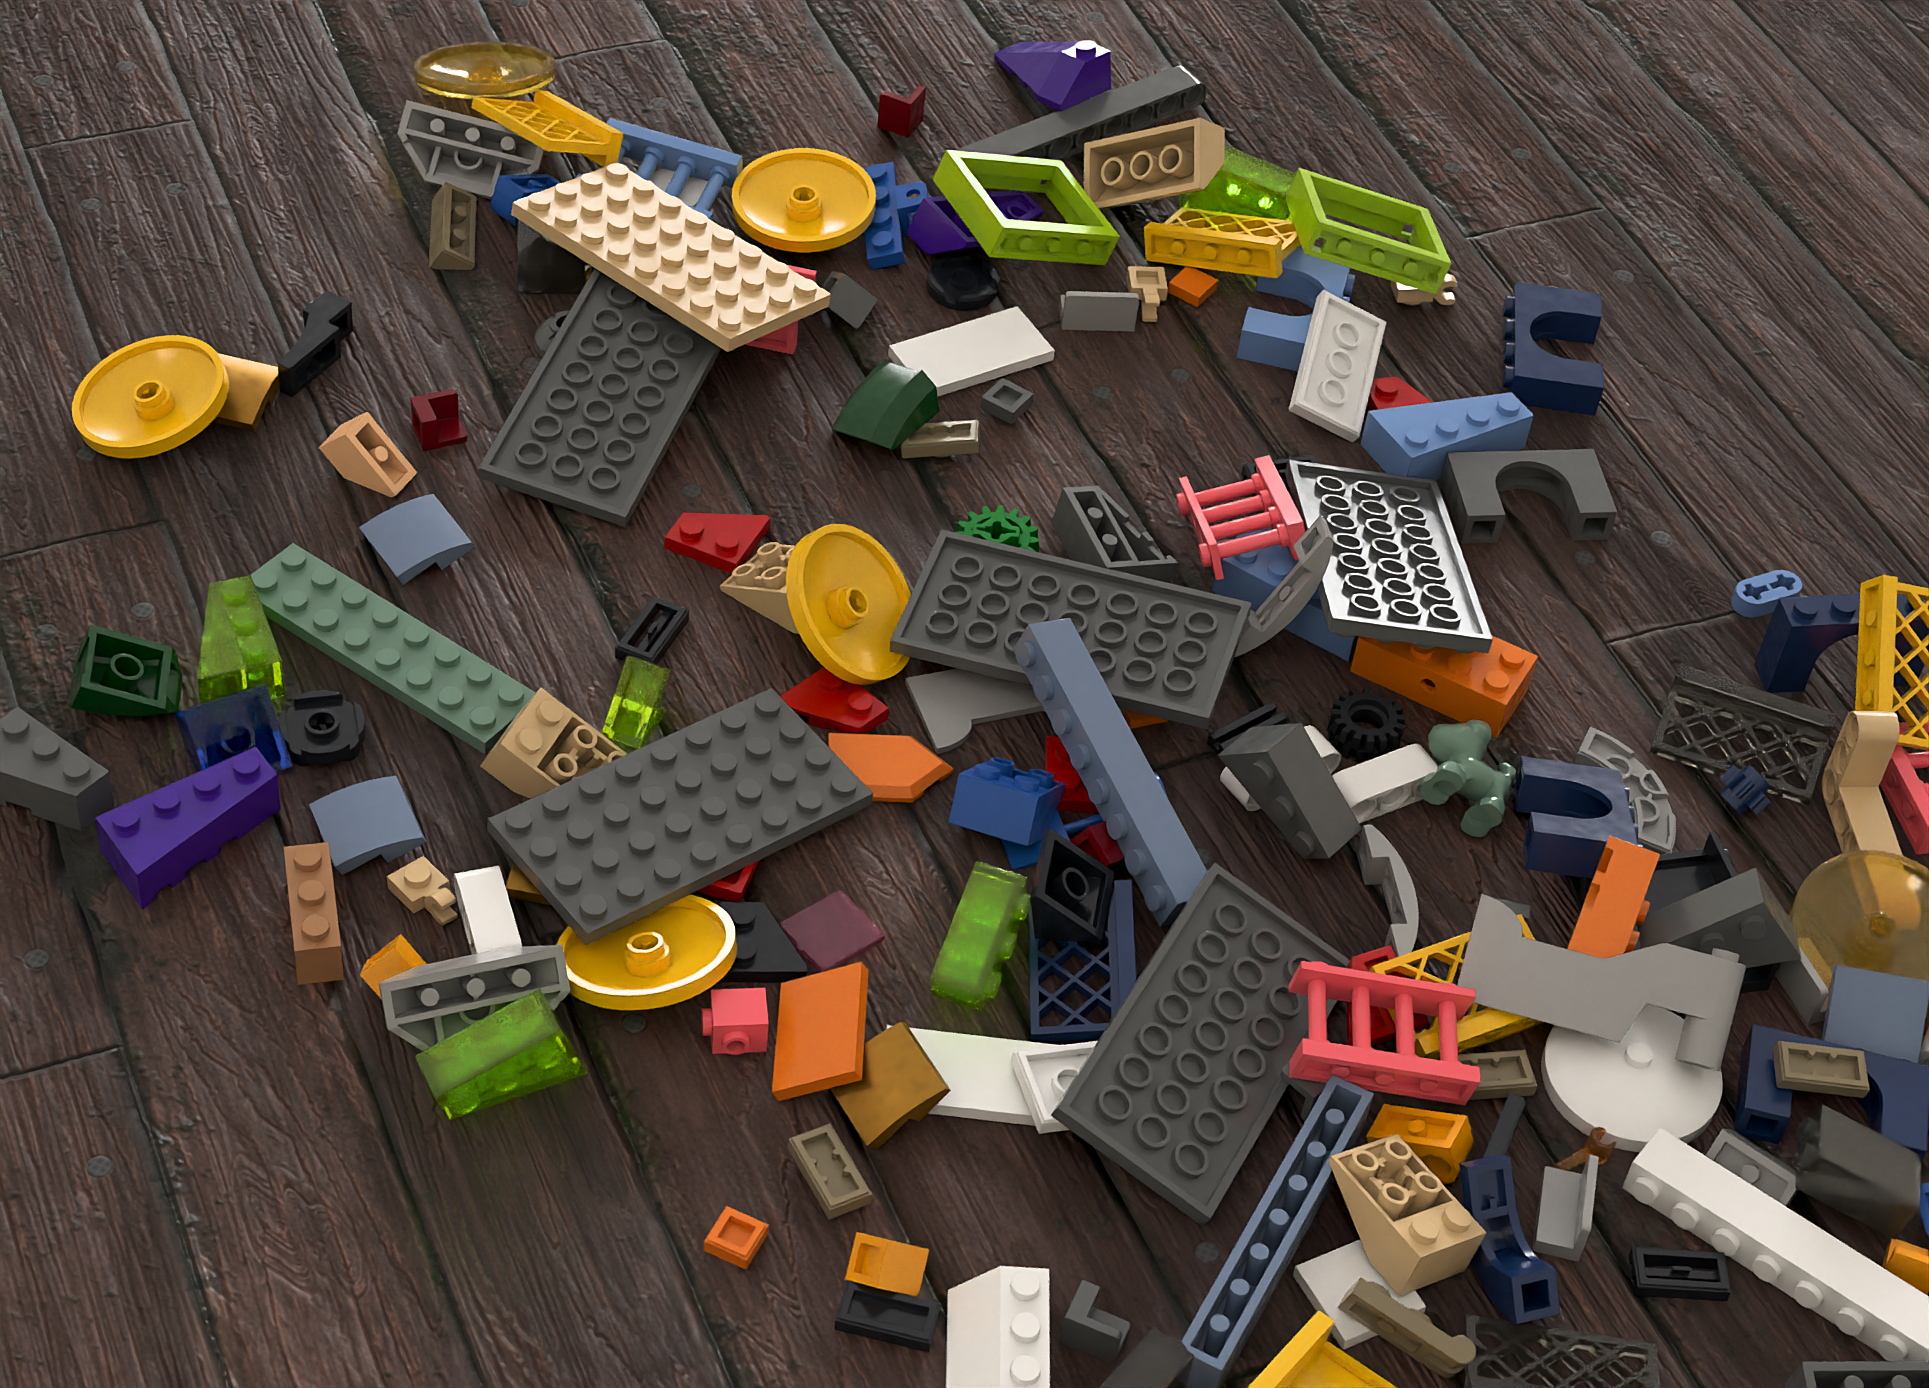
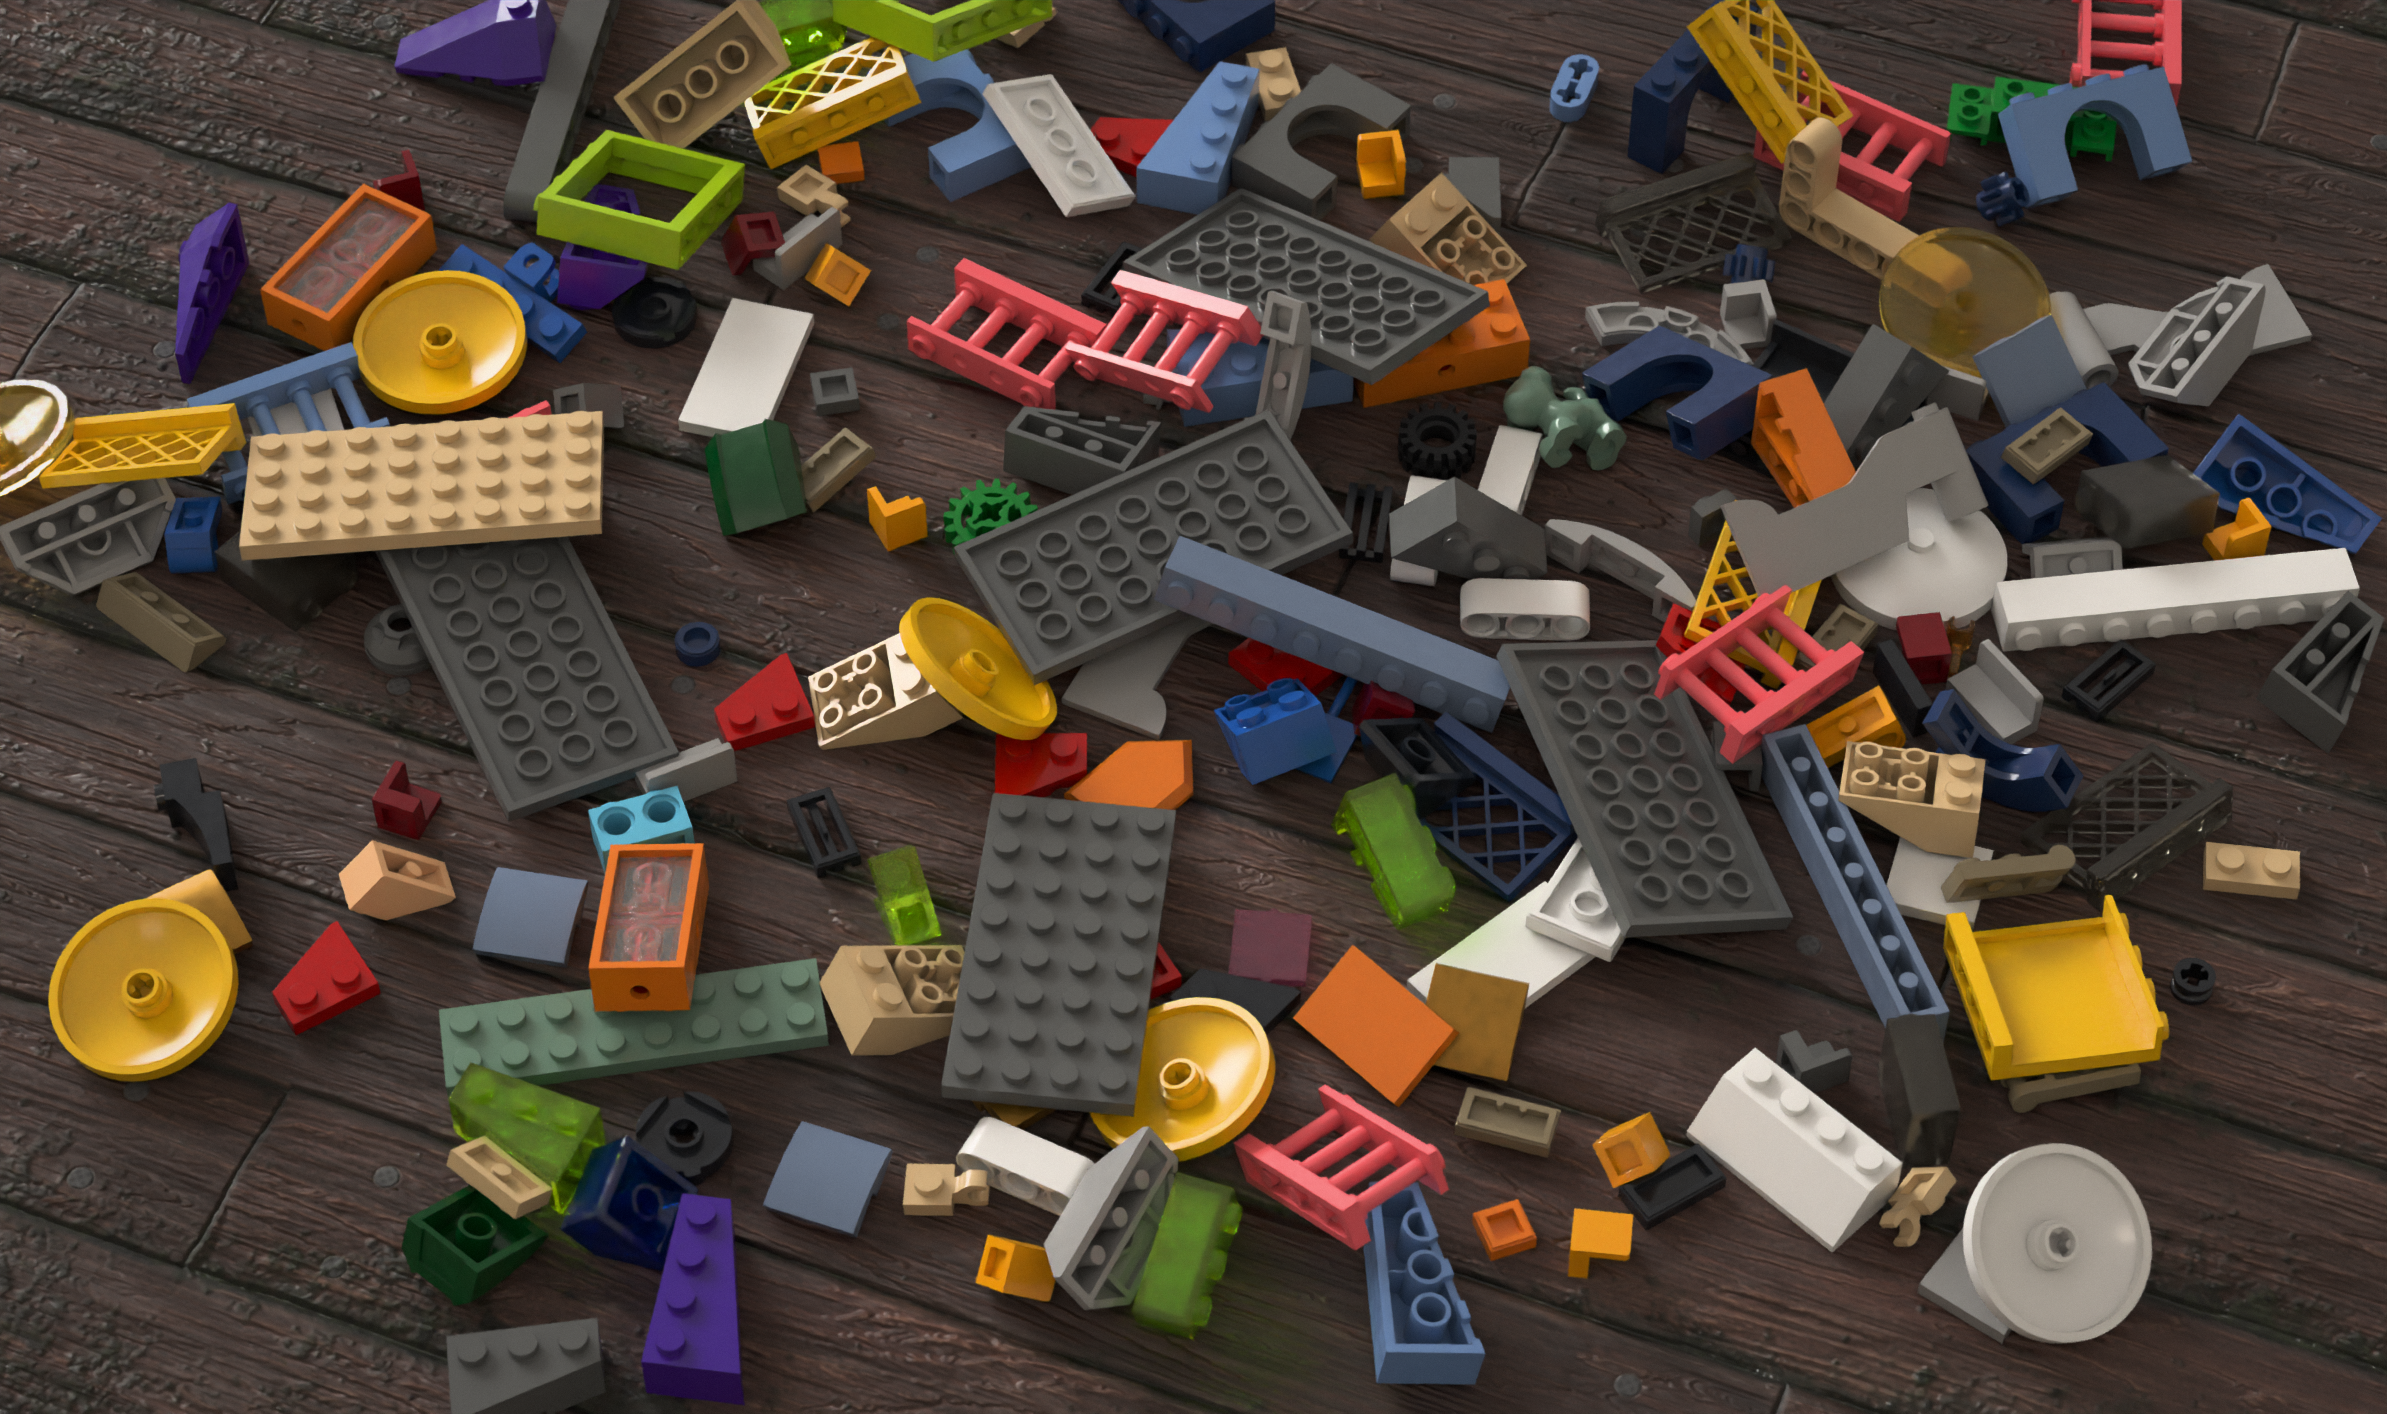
camera: 40 degrees left, 5 degrees up
(178, 652) = (499, 1177): none -> tan plate
(260, 480) = (325, 982): none -> red wing
(313, 913) = (895, 1281): medium nougat brick -> none
(454, 588) = (649, 927): none -> brick
(541, 543) = (644, 819): none -> medium azure brick
(602, 1214) = (1414, 1307): none -> medium blue wedge
(615, 536) = (693, 771): none -> light grey panel
(625, 1064) = (1324, 1199): none -> coral fence
(721, 81) = (208, 278): none -> dark purple wedge
(729, 473) = (697, 644): none -> dark blue tile
(736, 1021) = (1303, 1070): coral brick -> none
(778, 1295) = (1598, 1236): none -> light orange panel
(816, 118) = (346, 265): none -> brick
(942, 499) = (897, 521): none -> light orange panel
(1070, 276) = (751, 238): none -> dark red panel
(1099, 338) = (837, 274): none -> light orange panel
(1184, 433) = (1006, 303): none -> coral fence
(1286, 870) = (1525, 609): none -> white beam
(1538, 611) = (1449, 236): none -> tan slope
(1549, 1128) = (1925, 646): none -> dark red panel
(1553, 433) = (1276, 79): none -> tan plate
(1555, 537) = (1381, 164): none -> light orange panel
(1600, 601) = (1480, 185): none -> dark grey slope
(1708, 812) = (1748, 313): none -> light grey panel

